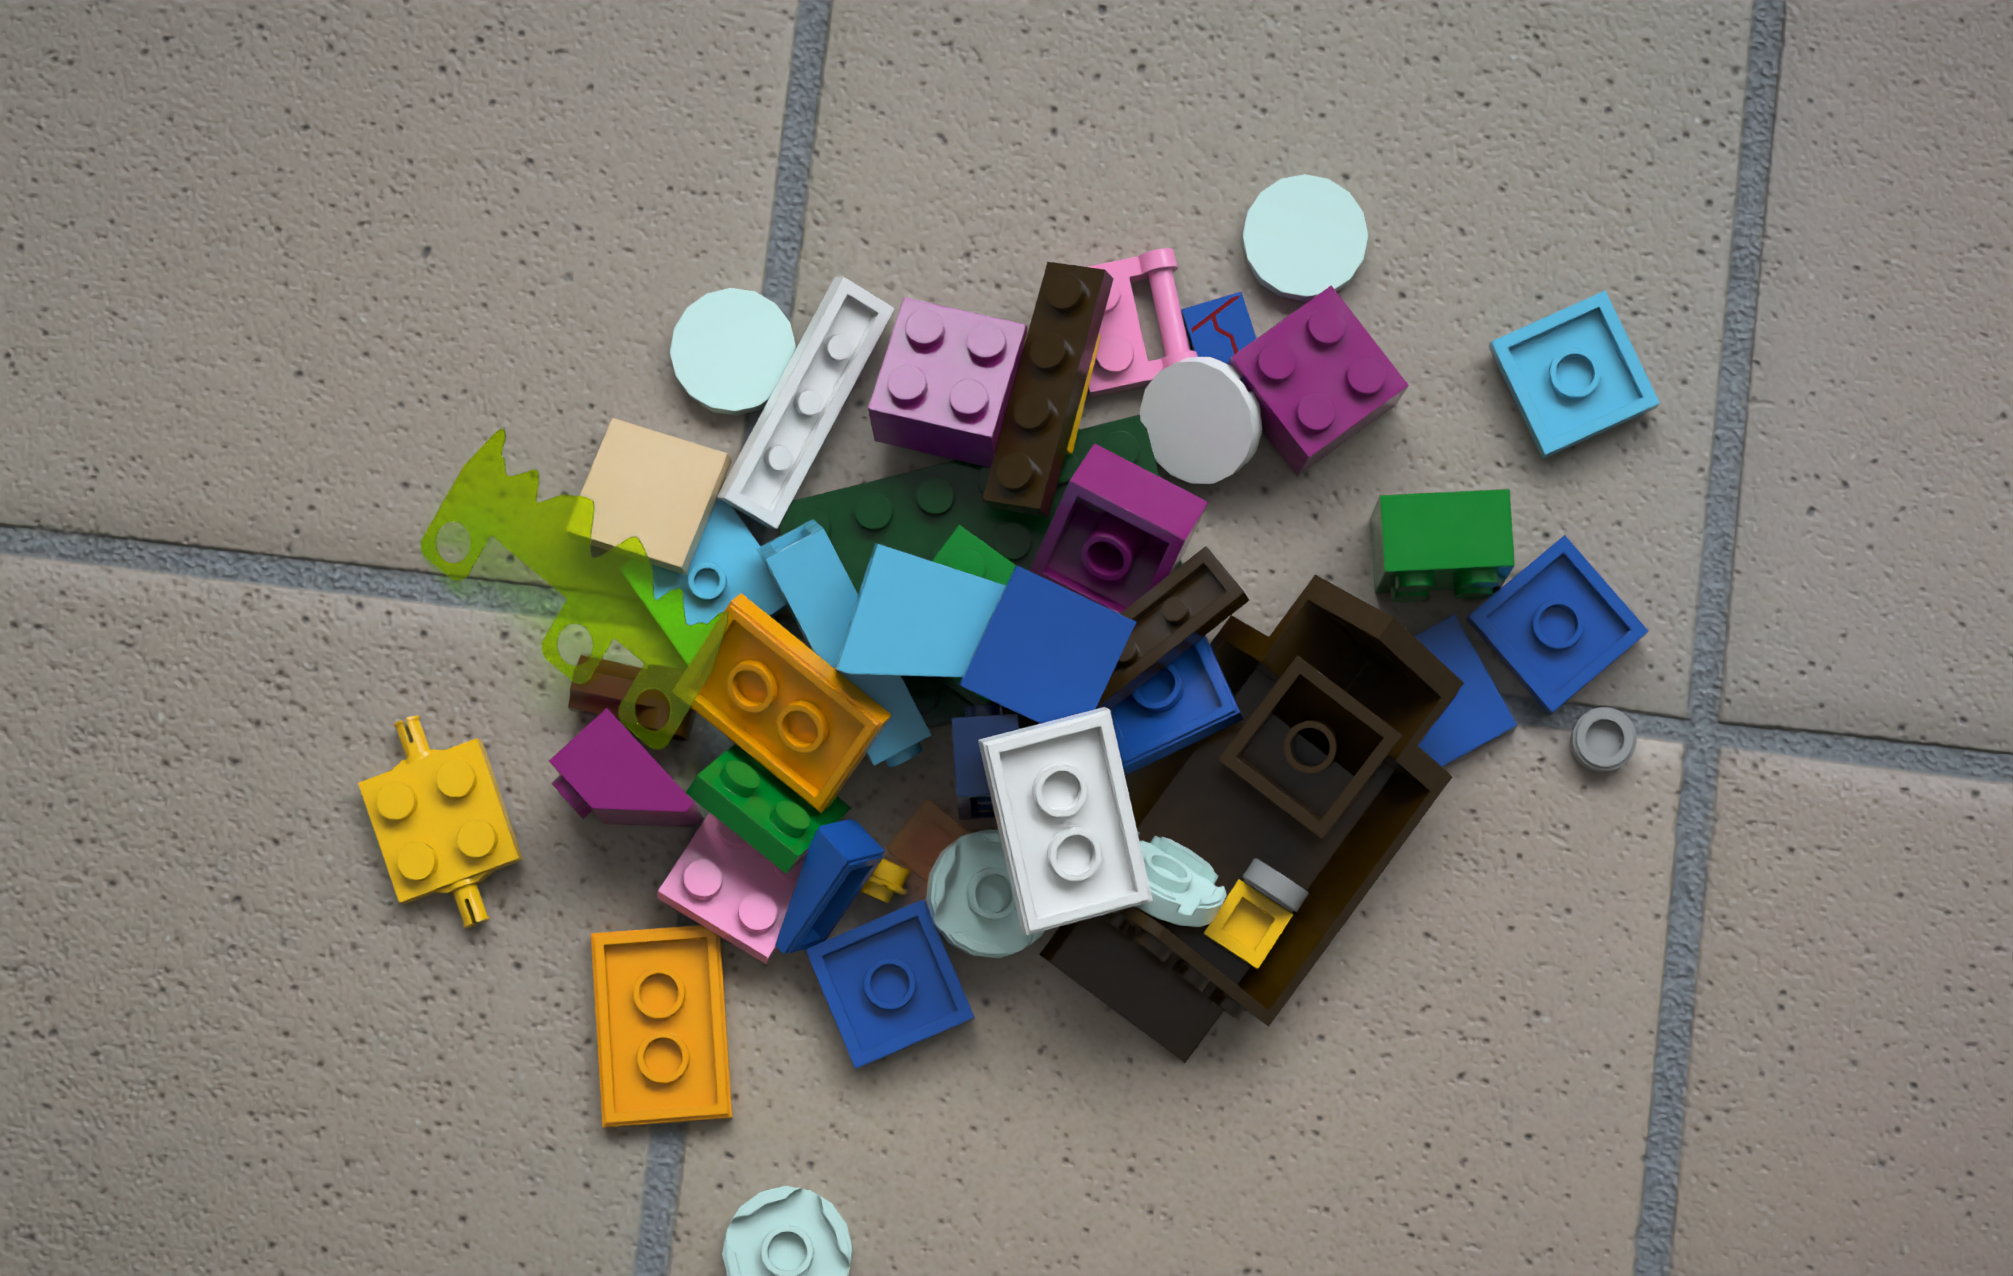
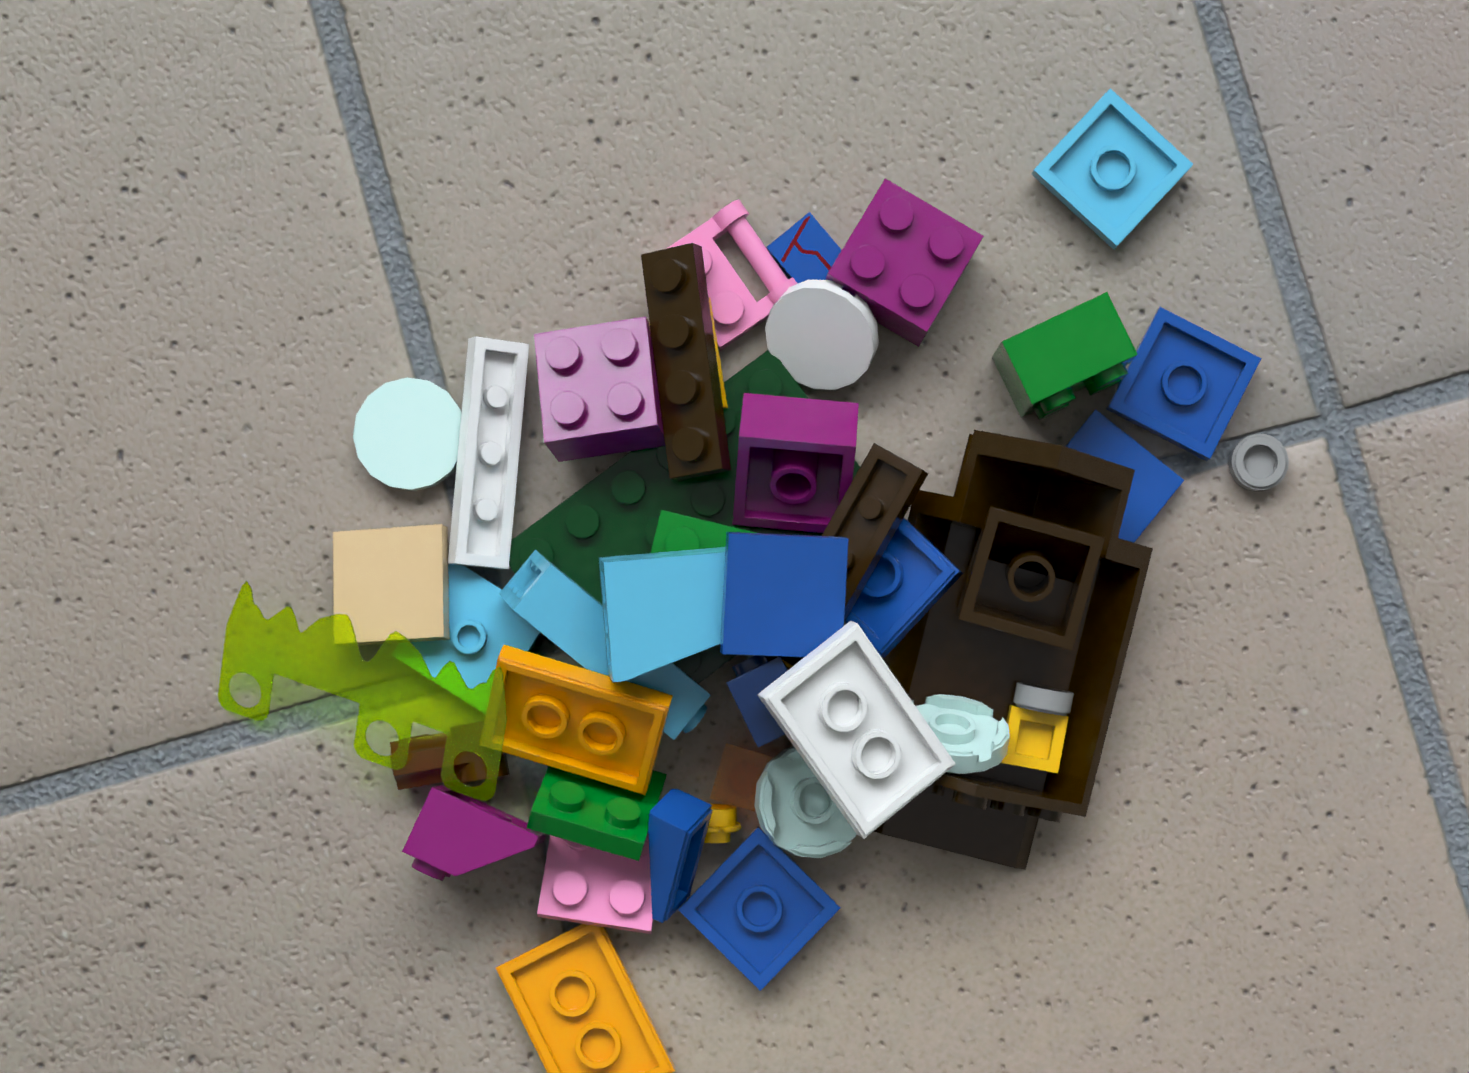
camera: 15 degrees left, 5 degrees up
(441, 821) = (332, 926): yellow plate -> none
(1304, 237) = (843, 144): light aqua tile -> none

